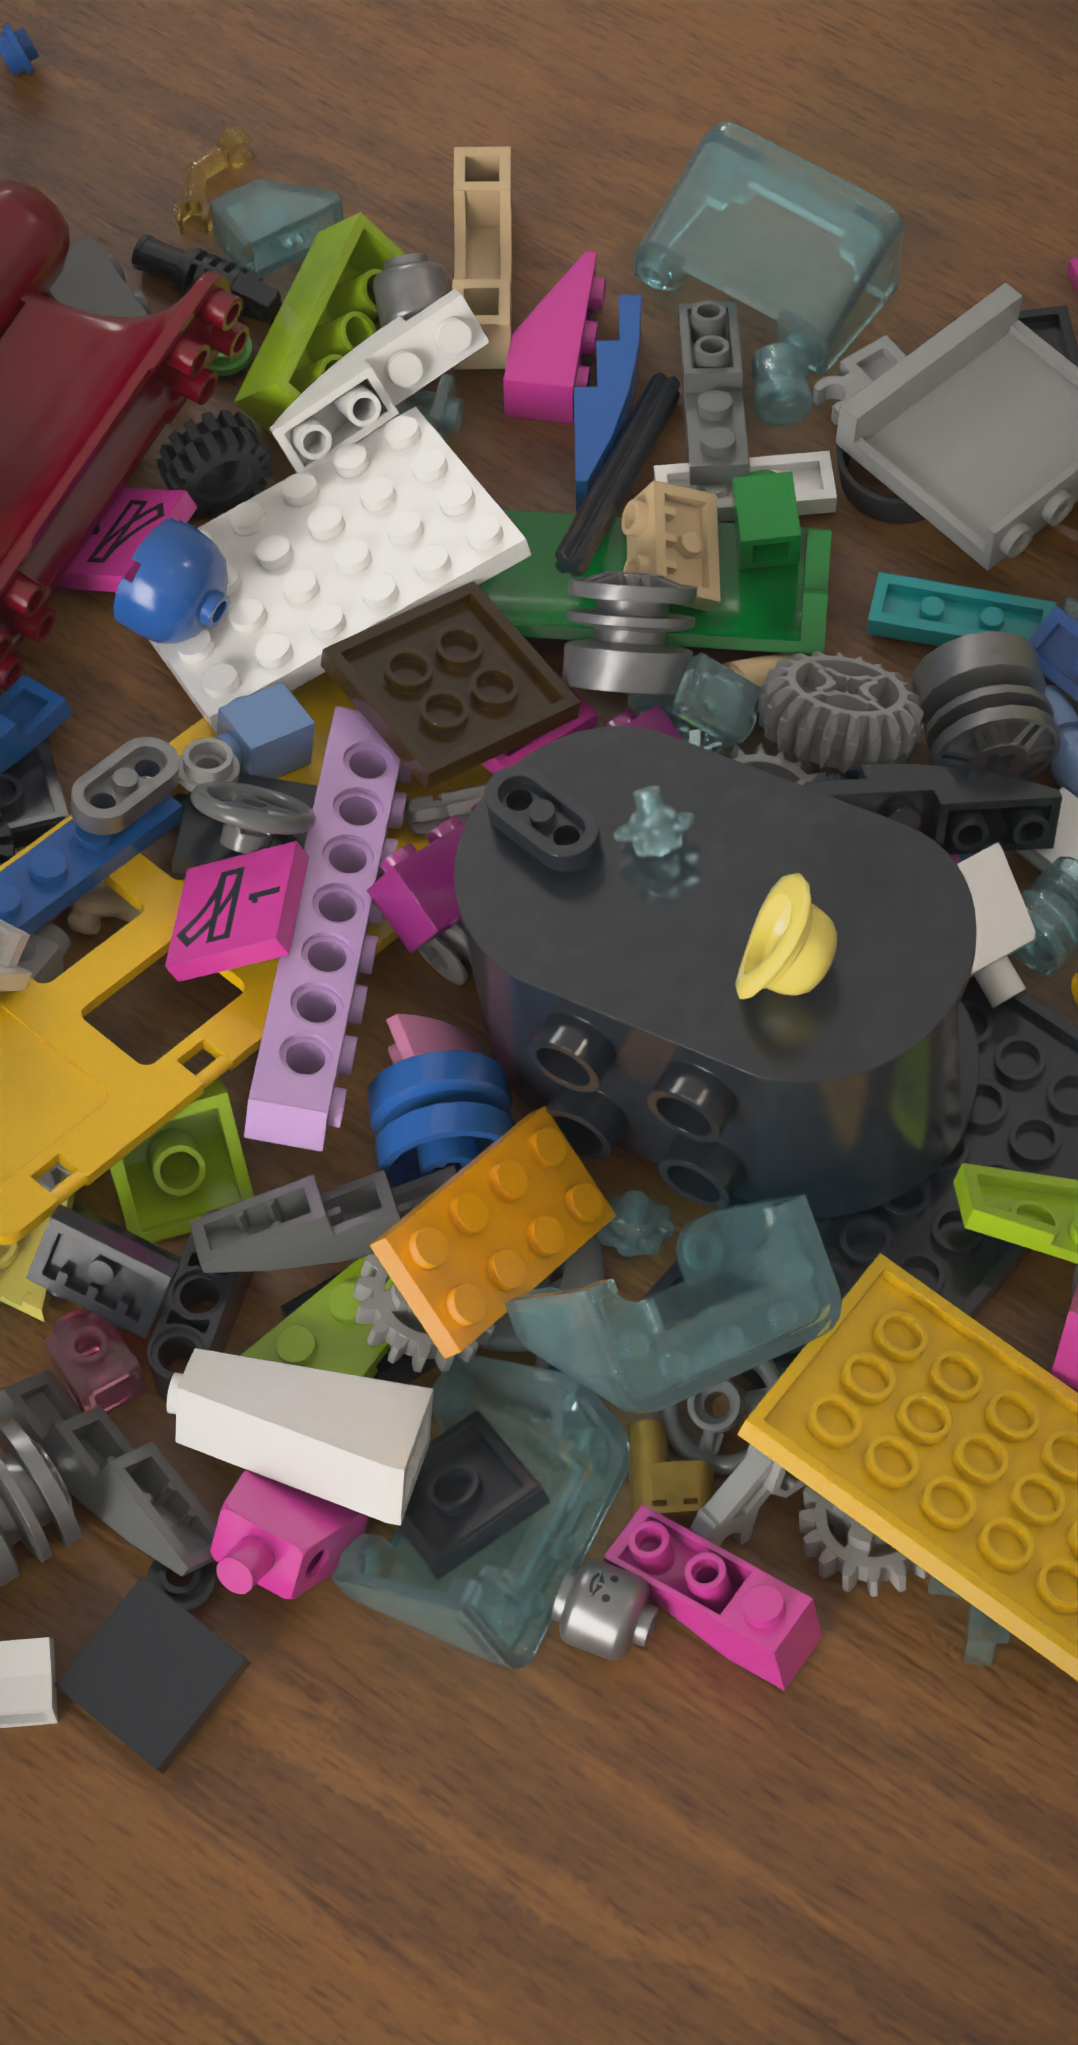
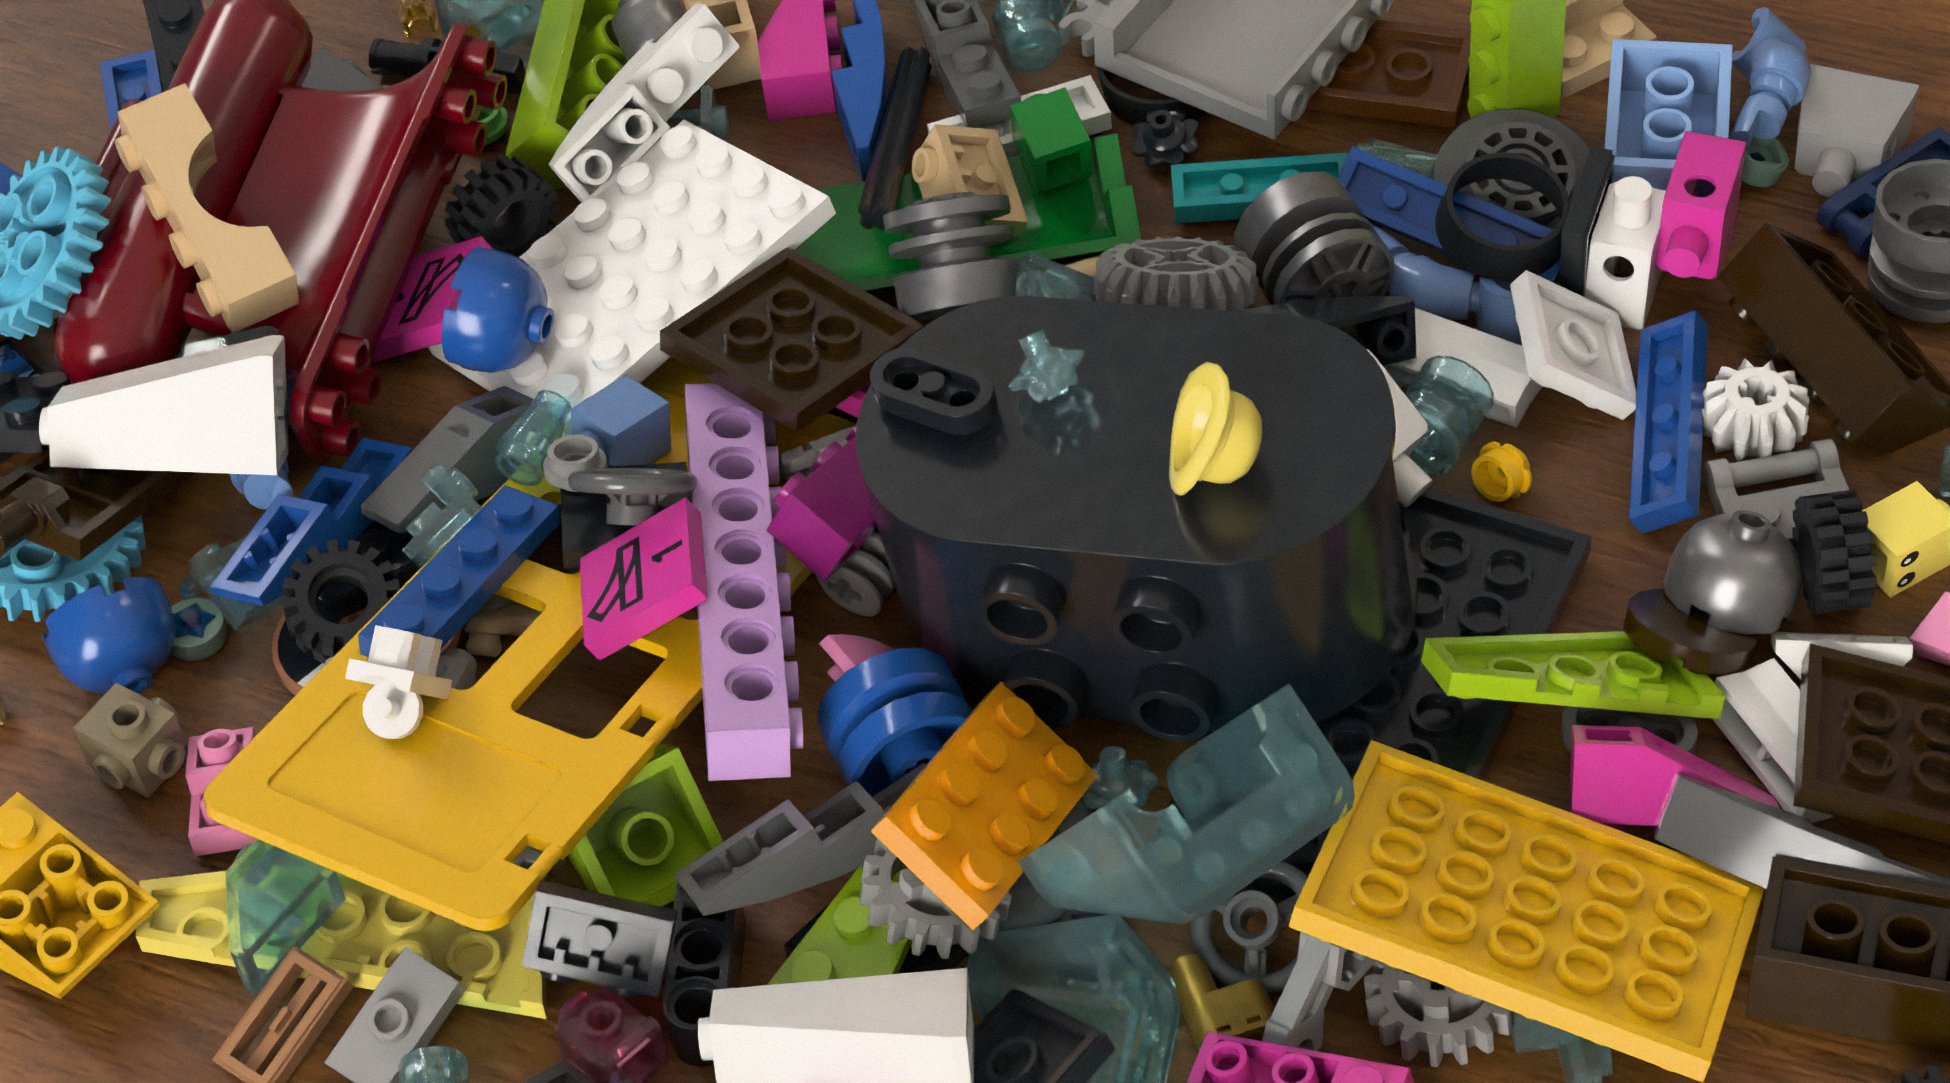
camera: 10 degrees left, 10 degrees down
(55, 797) = (436, 527): none -> clear light blue bracket
(114, 791) = (498, 492): flat silver plate -> none
(123, 706) = (460, 440): none -> dark grey slope
(184, 717) = (527, 441): none -> clear light blue cone
(883, 538) = (1165, 137): none -> black plant

